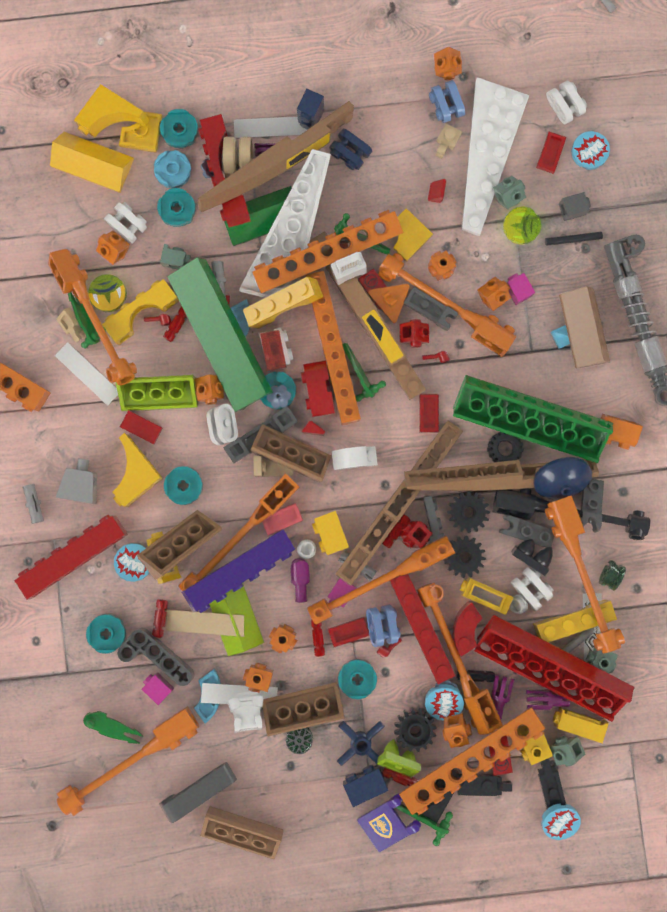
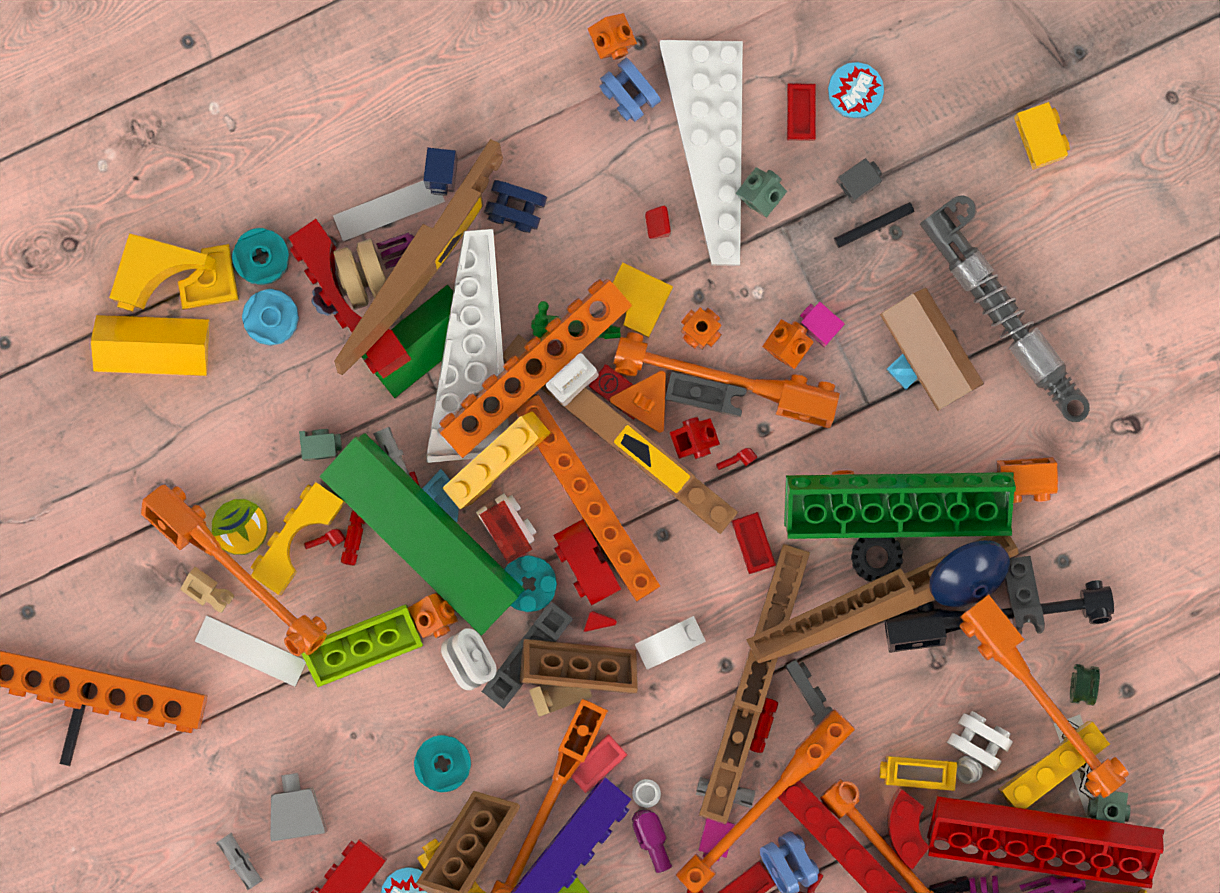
camera: 25 degrees left, 0 degrees up
(84, 321) = (224, 579): green piece -> none
(112, 247) = (226, 460): orange brick -> none
(124, 211) = (224, 402): white brick -> none
(138, 477) = (376, 771): yellow arch -> none
(141, 427) = (354, 701): red tile -> none
(168, 200) = (310, 379): teal plate -> none
(282, 401) = (543, 589): sand blue plant -> none
(330, 532) = (672, 759): yellow brick -> none
(369, 390) = (658, 539): green piece -> none
(420, 531) = (799, 718): red brick -> none
(448, 139) = (648, 142): tan plate -> none
(472, 563) = (885, 733): black gear -> none
(476, 519) = (840, 667): black gear -> none
(522, 225) = (794, 230): clear neon green tile -> none
(526, 530) = (948, 663): dark grey plate -> none
(539, 562) = (978, 700): black tile -> none
(566, 102) = (815, 33): white brick -> none
(578, 640) = (1069, 790): light grey bar -> none

